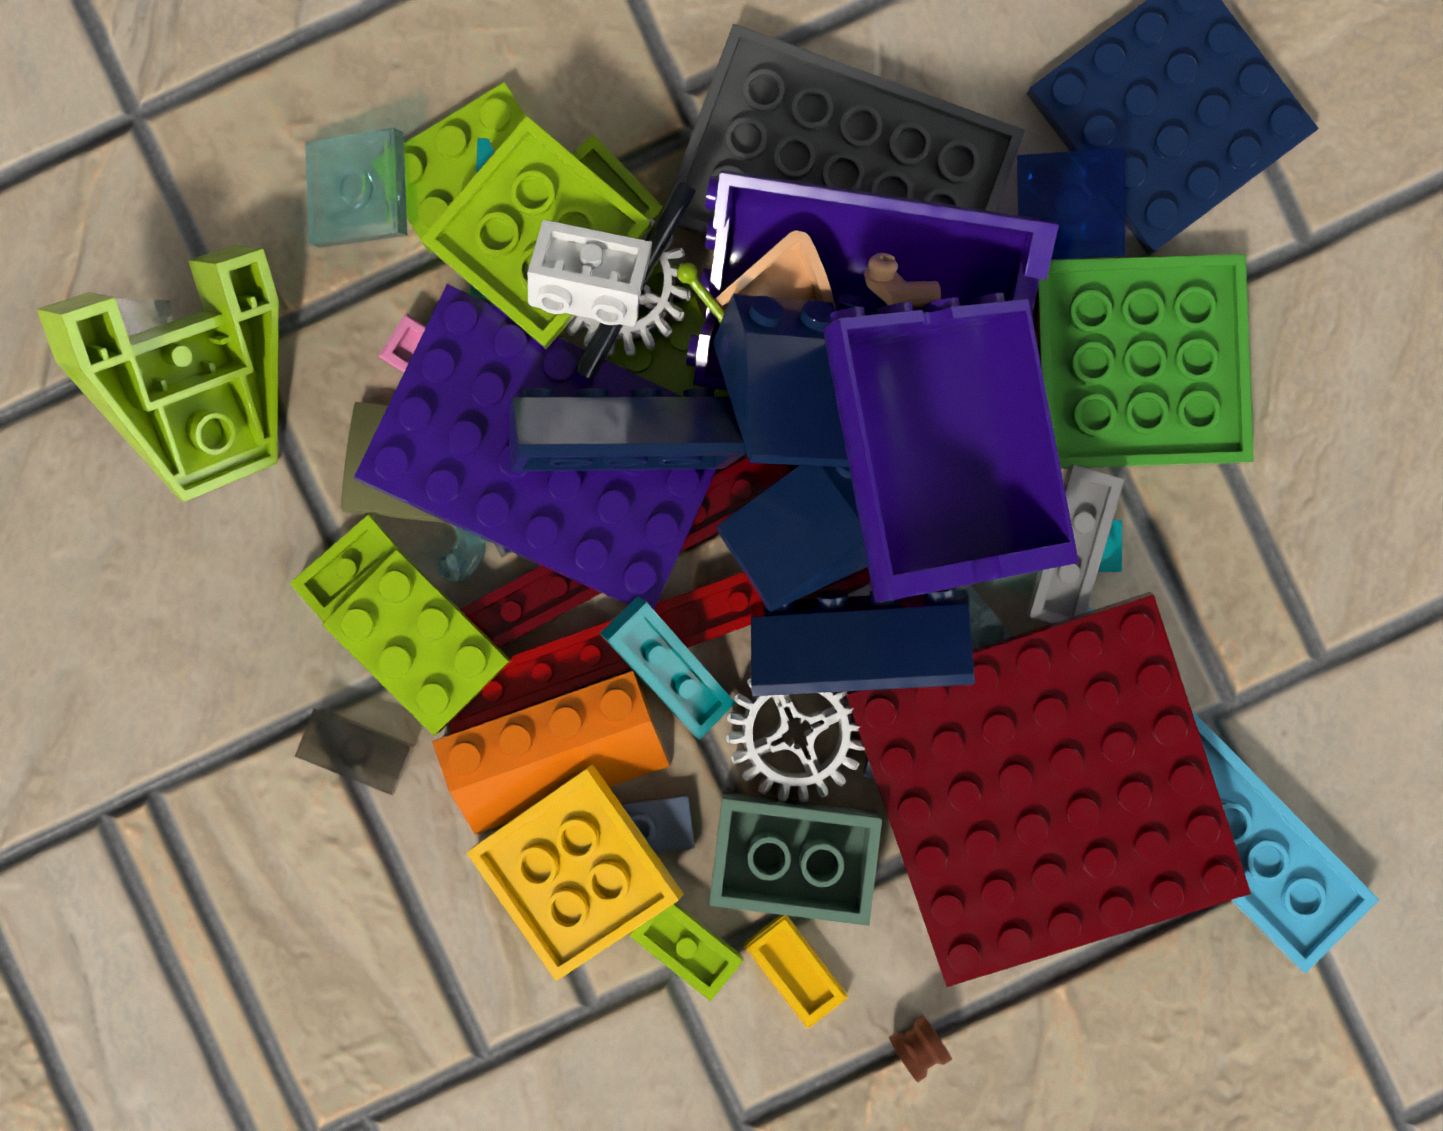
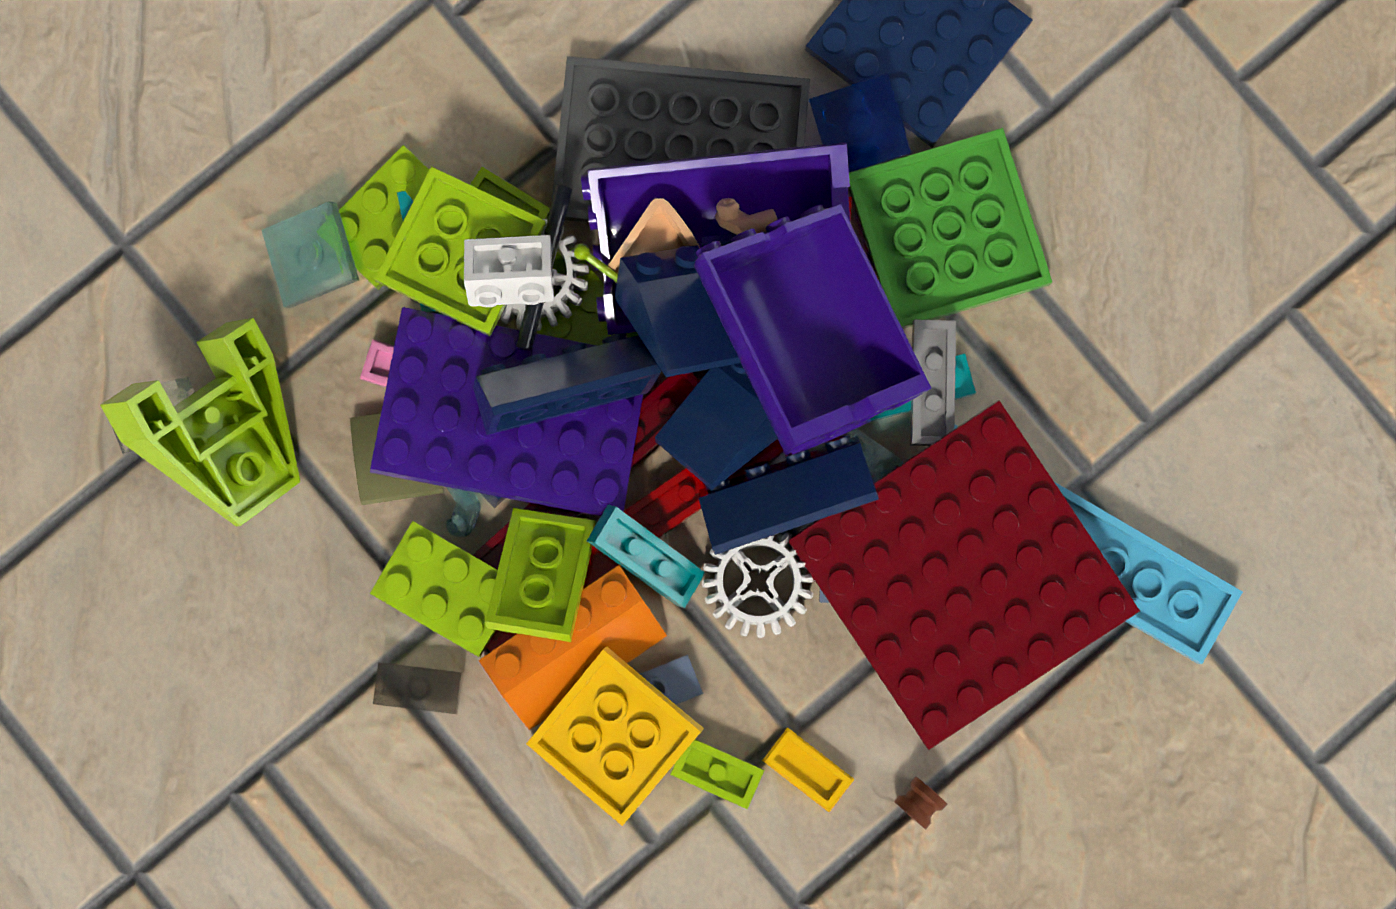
camera: 15 degrees left, 5 degrees down
(344, 567) = (374, 547): lime plate -> none
(533, 660) = (541, 575): none -> lime plate
(795, 858) = (782, 677): sand green brick -> none

